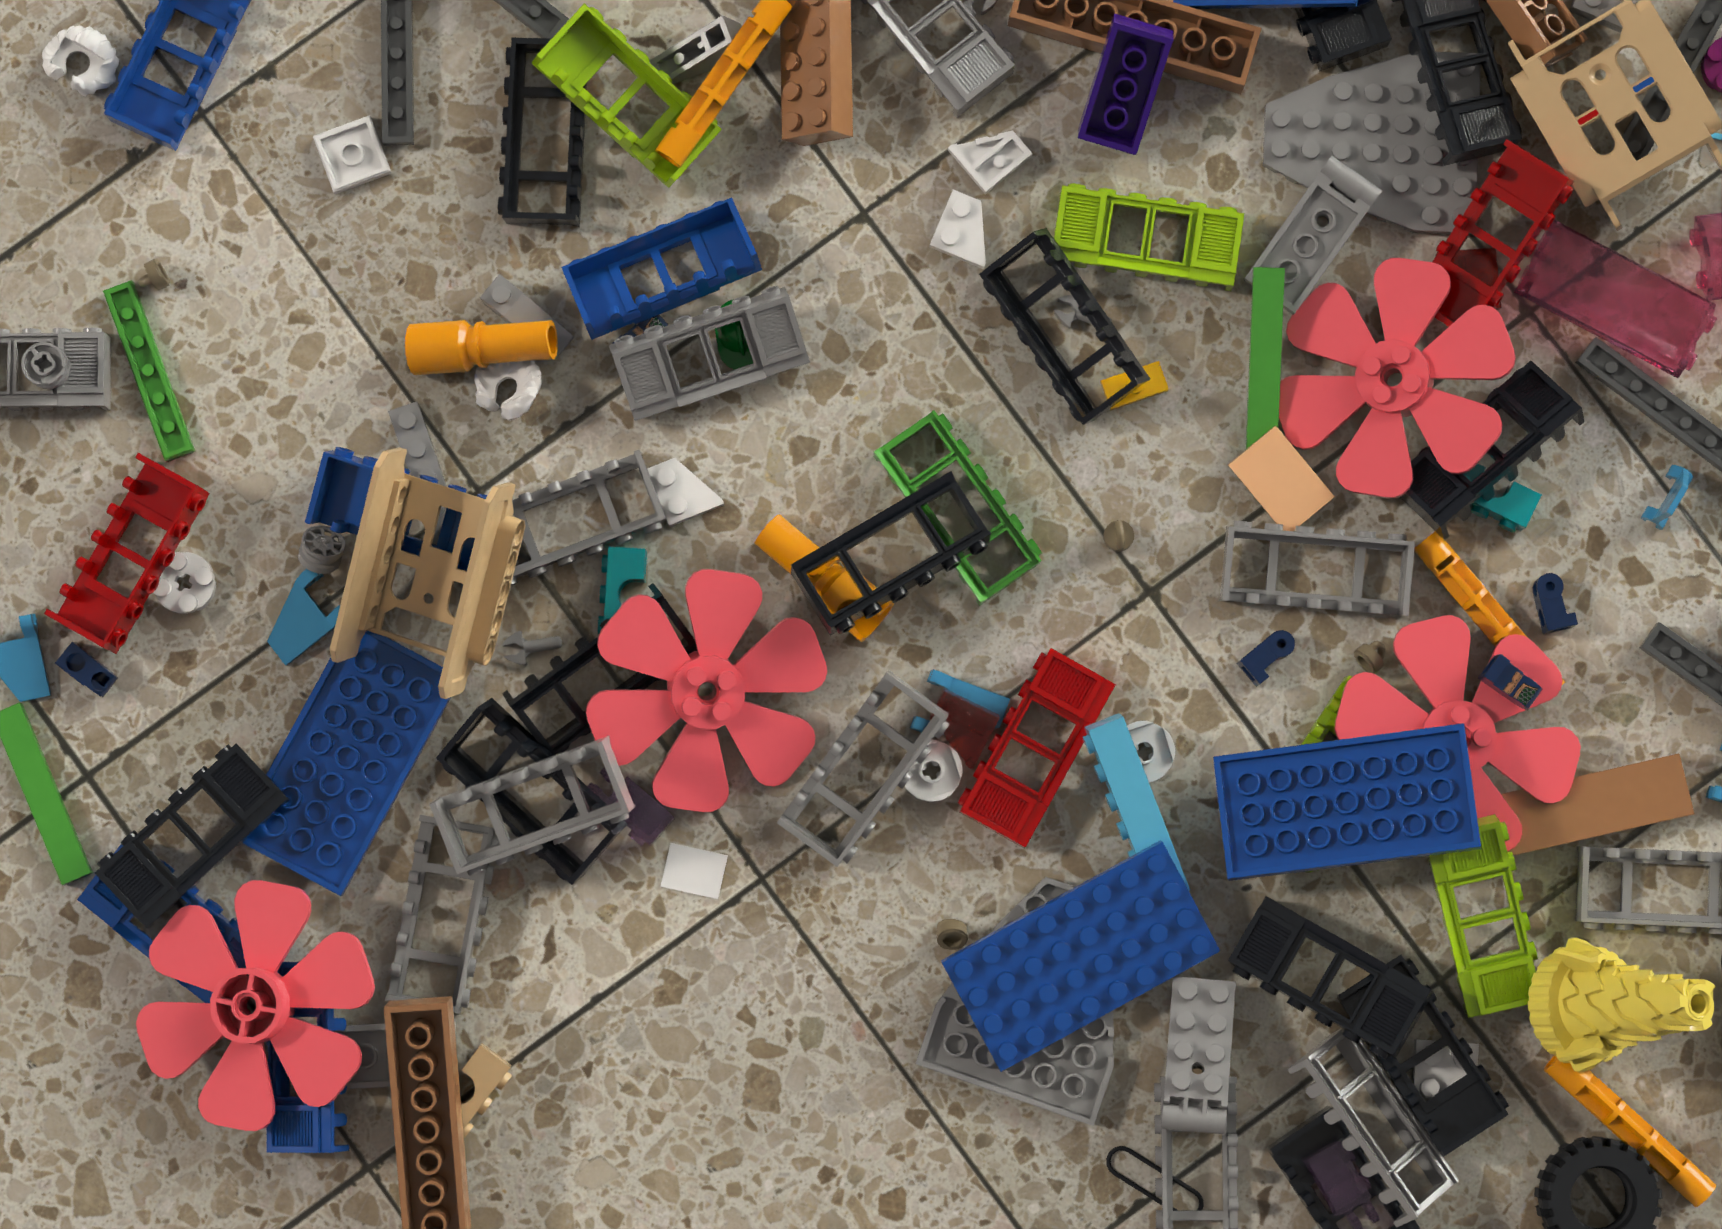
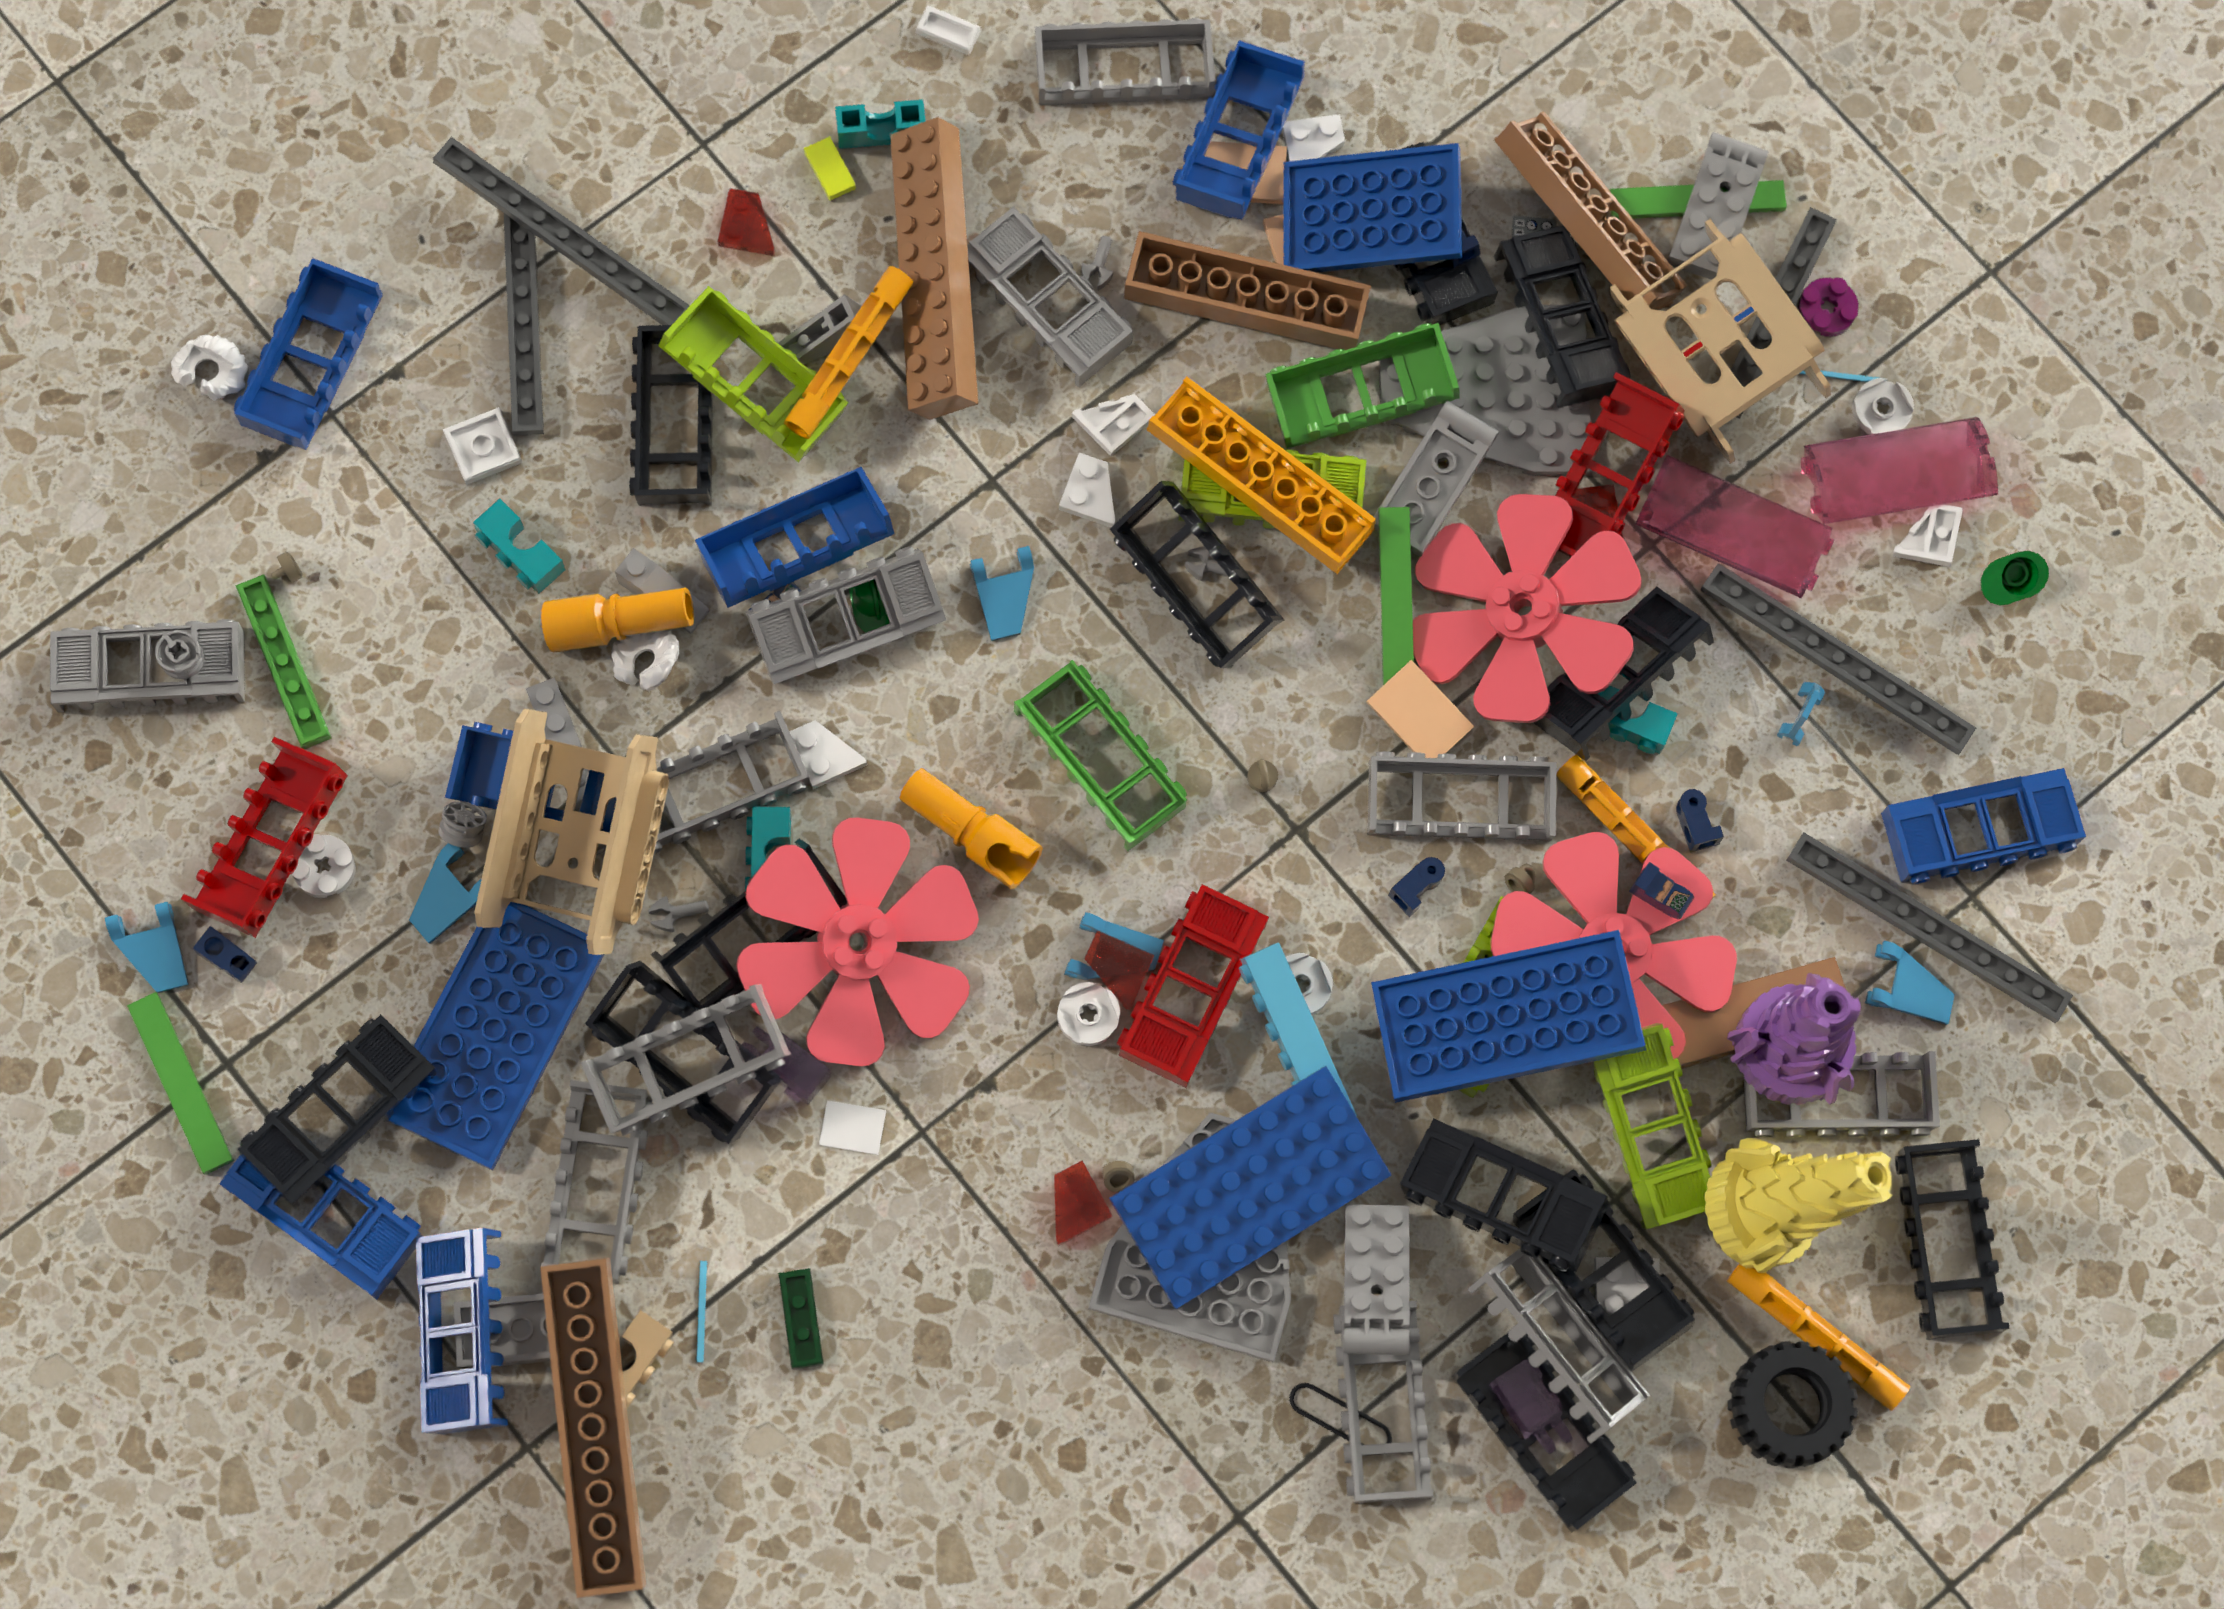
camera: 10 degrees left, 10 degrees down
(327, 977) = (468, 1325): coral piece -> none
(401, 285) = (535, 566): none -> teal arch
(540, 1044) = (701, 1311): none -> medium azure piece
(636, 1057) = (801, 1319): none -> dark green tile
(870, 337) = (1004, 596): none -> dark azure flag
(895, 589) = (1046, 826): black window -> none
(900, 776) = (1041, 1042): light grey window -> none
(910, 959) = (1077, 1203): none -> clear red wing
(1125, 84) = (1242, 341): dark purple brick -> none
(1136, 227) = (1262, 475): none -> light orange tile
(1155, 386) = (1282, 633): yellow plate -> none
(1306, 116) = (1421, 369): none -> bright green window
(1622, 845) = (1798, 1041): none -> medium lavender cone

